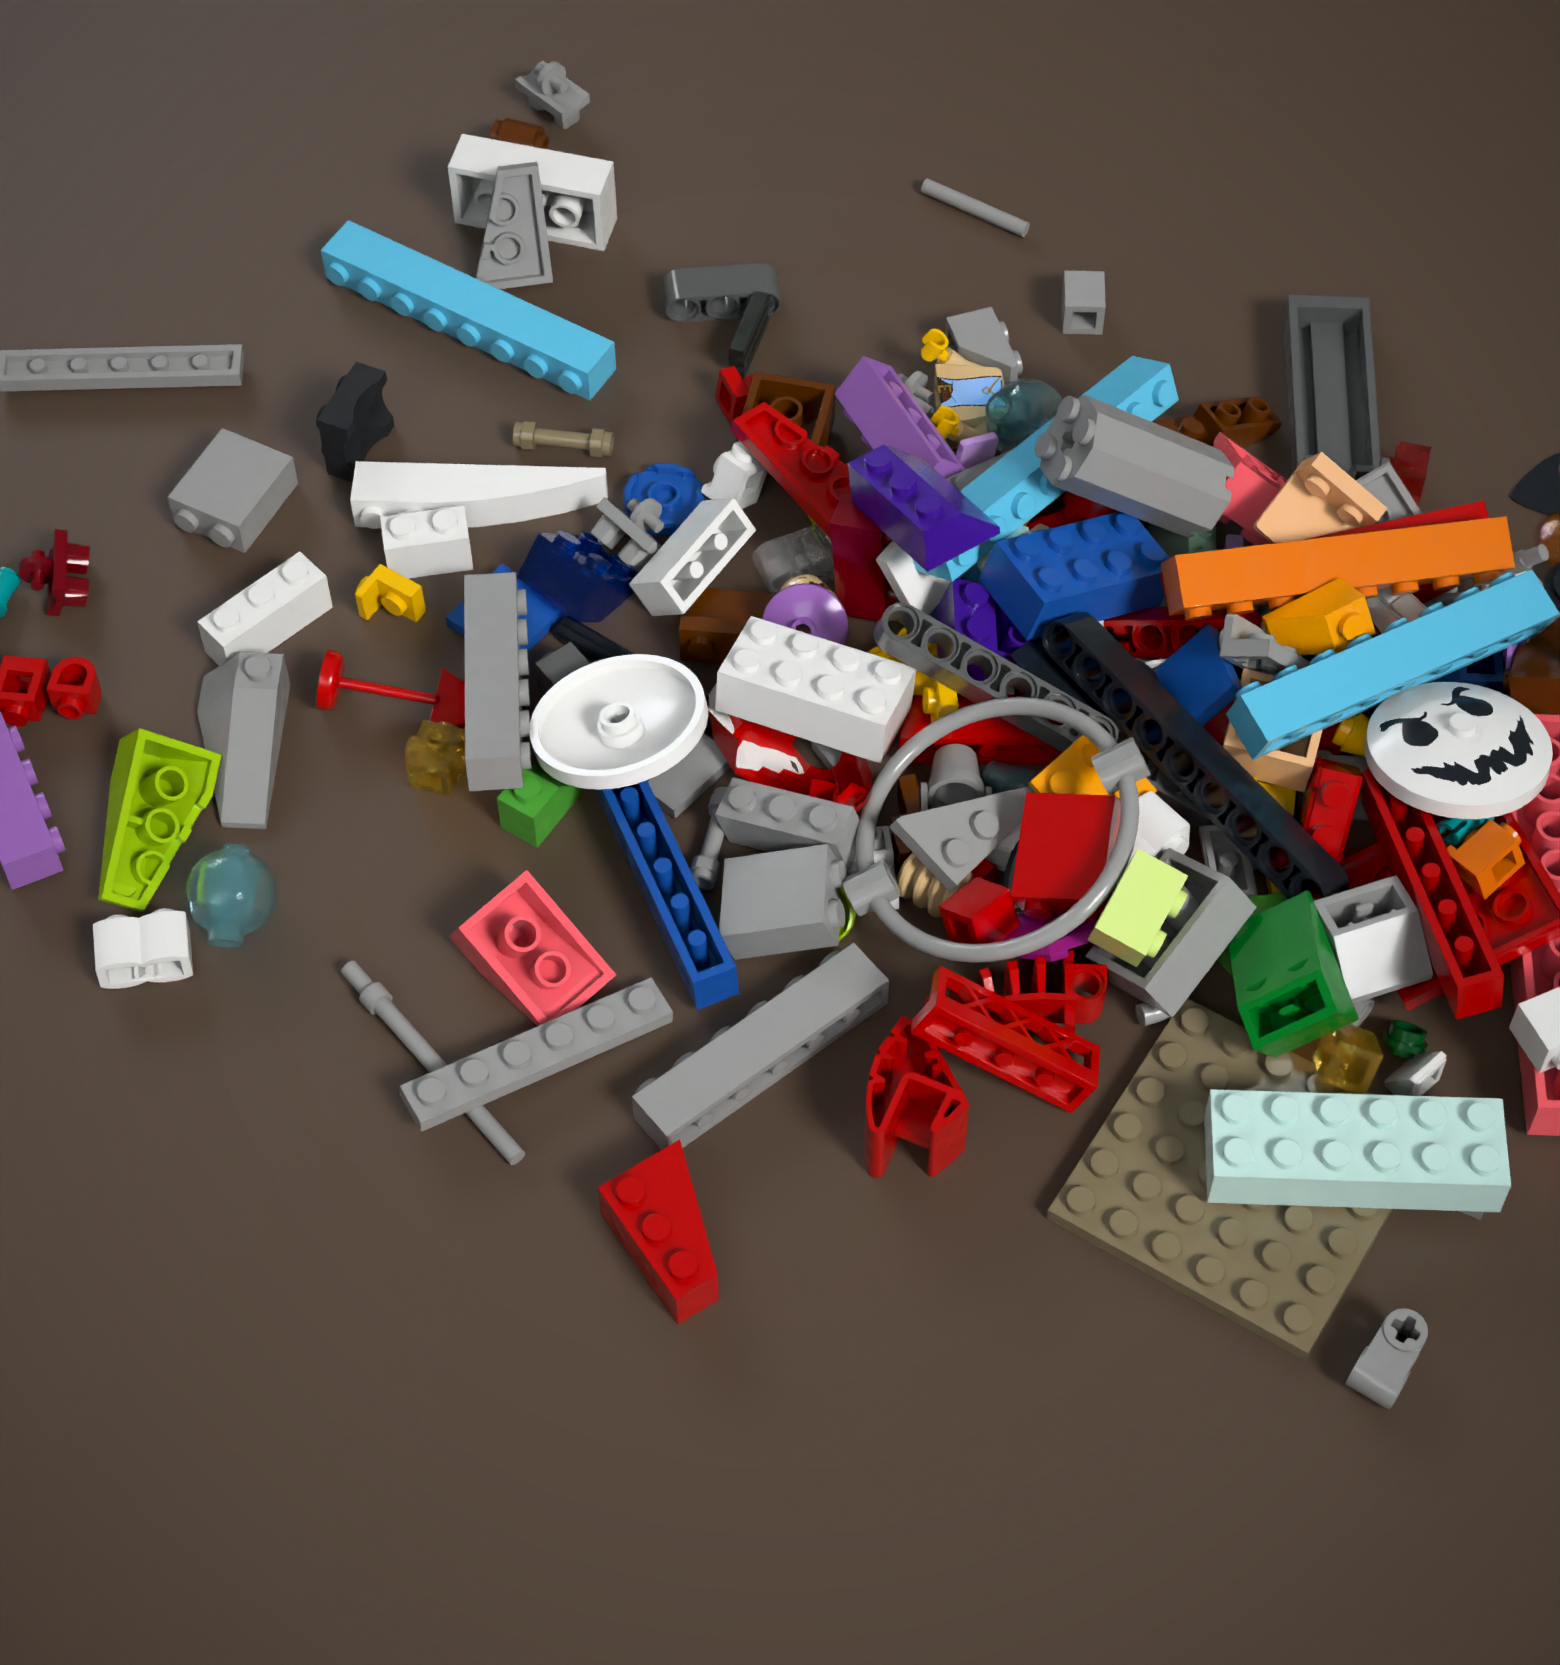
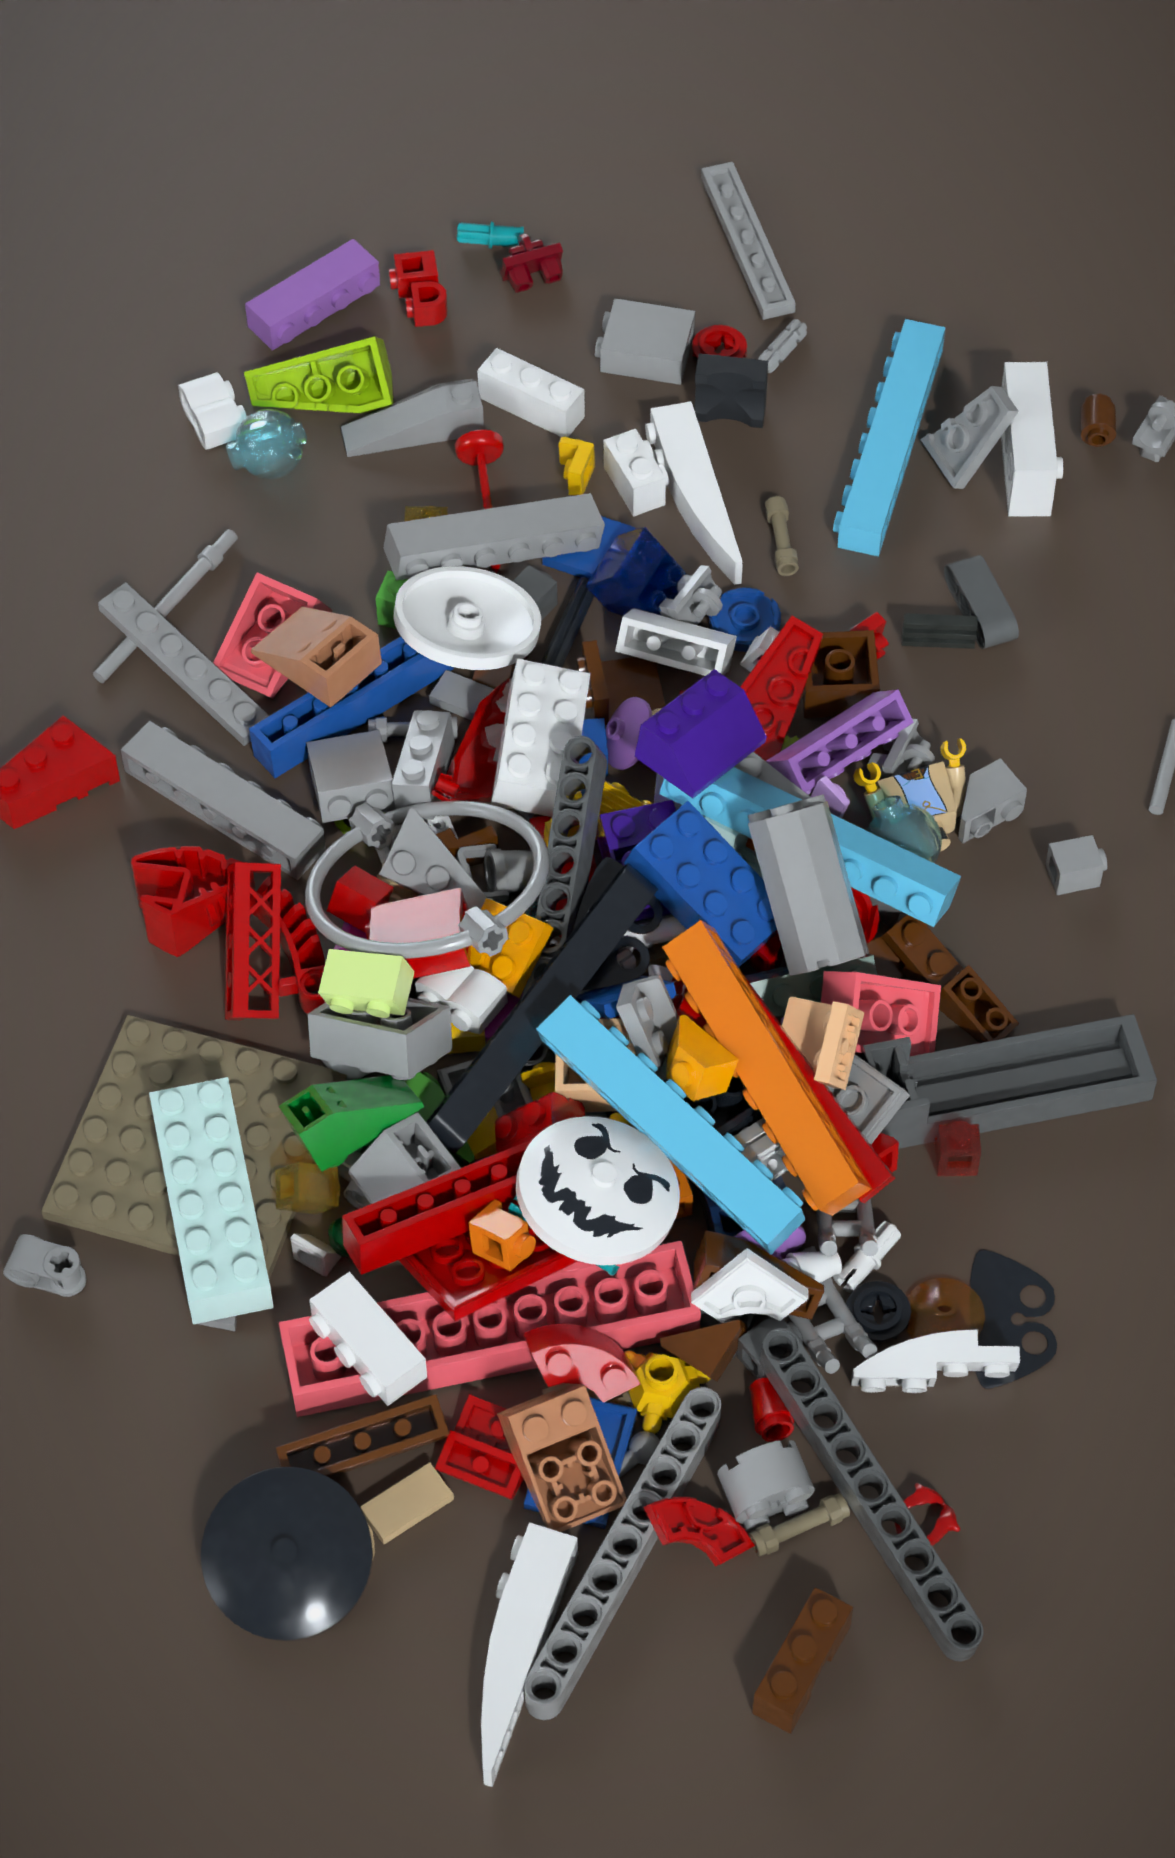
camera: 75 degrees right, 0 degrees up
(269, 417) = (711, 337): none -> red gear
(290, 376) = (784, 344): none -> light grey axle
(617, 876) = (321, 652): none -> nougat slope

